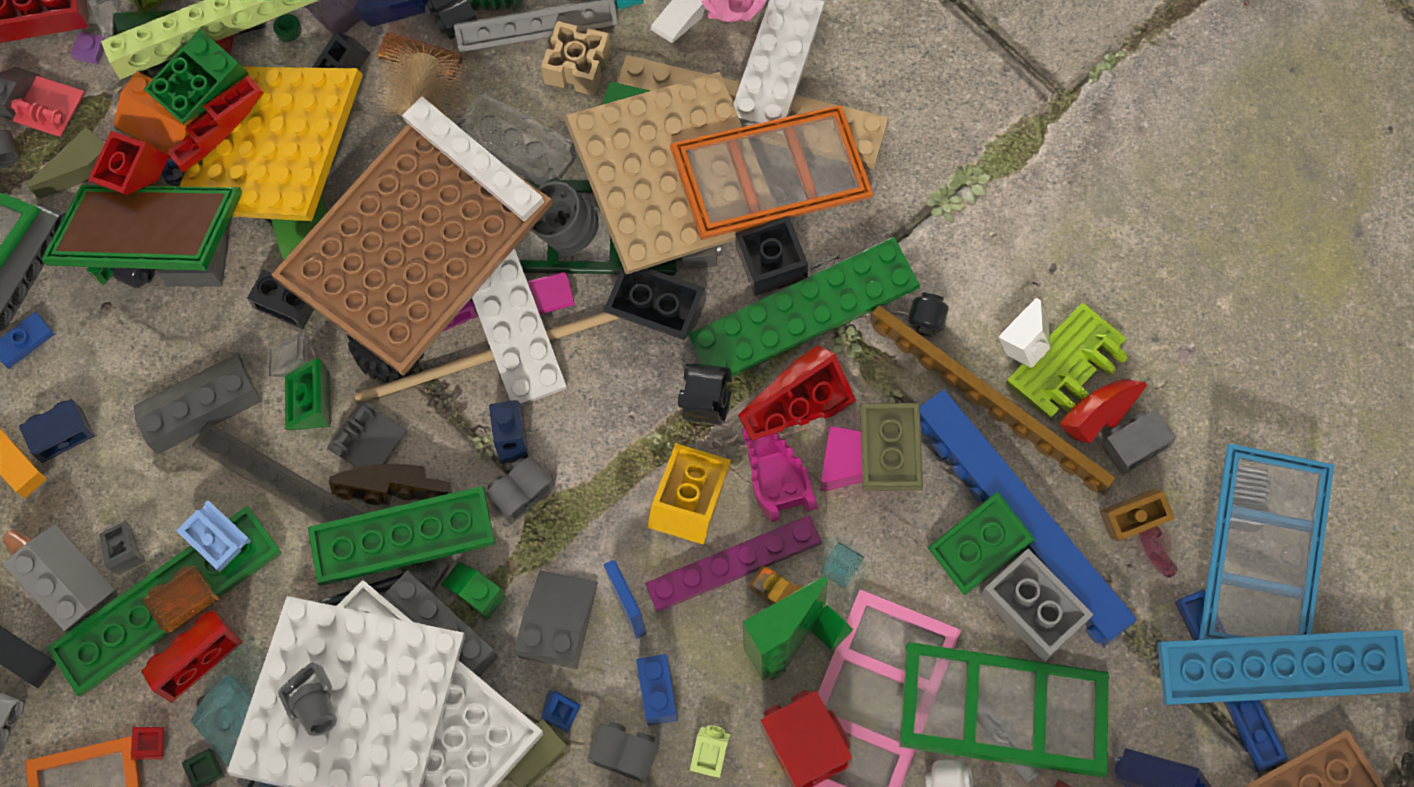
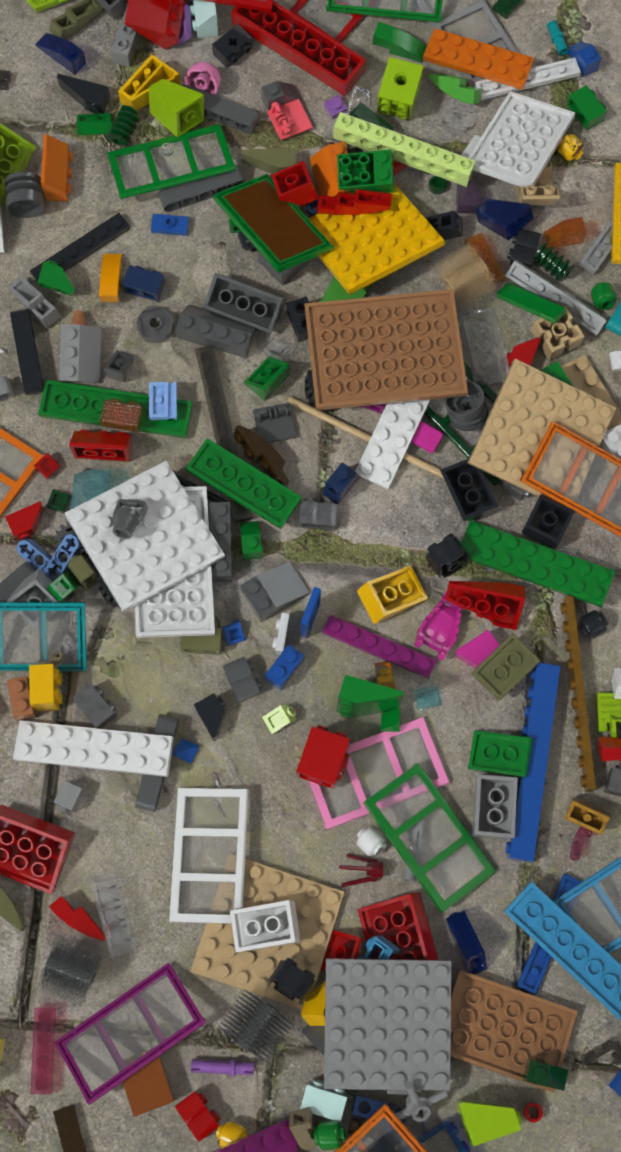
camera: 40 degrees right, 5 degrees up
(122, 478) = (161, 316): none -> flat silver plate
(197, 342) = (244, 302): none -> dark grey slope
(473, 159) = (451, 337): white plate -> none
(517, 52) = (531, 303): none -> green tile
(560, 106) = (524, 352): none -> red slope
(621, 666) = (281, 625): none -> white plate

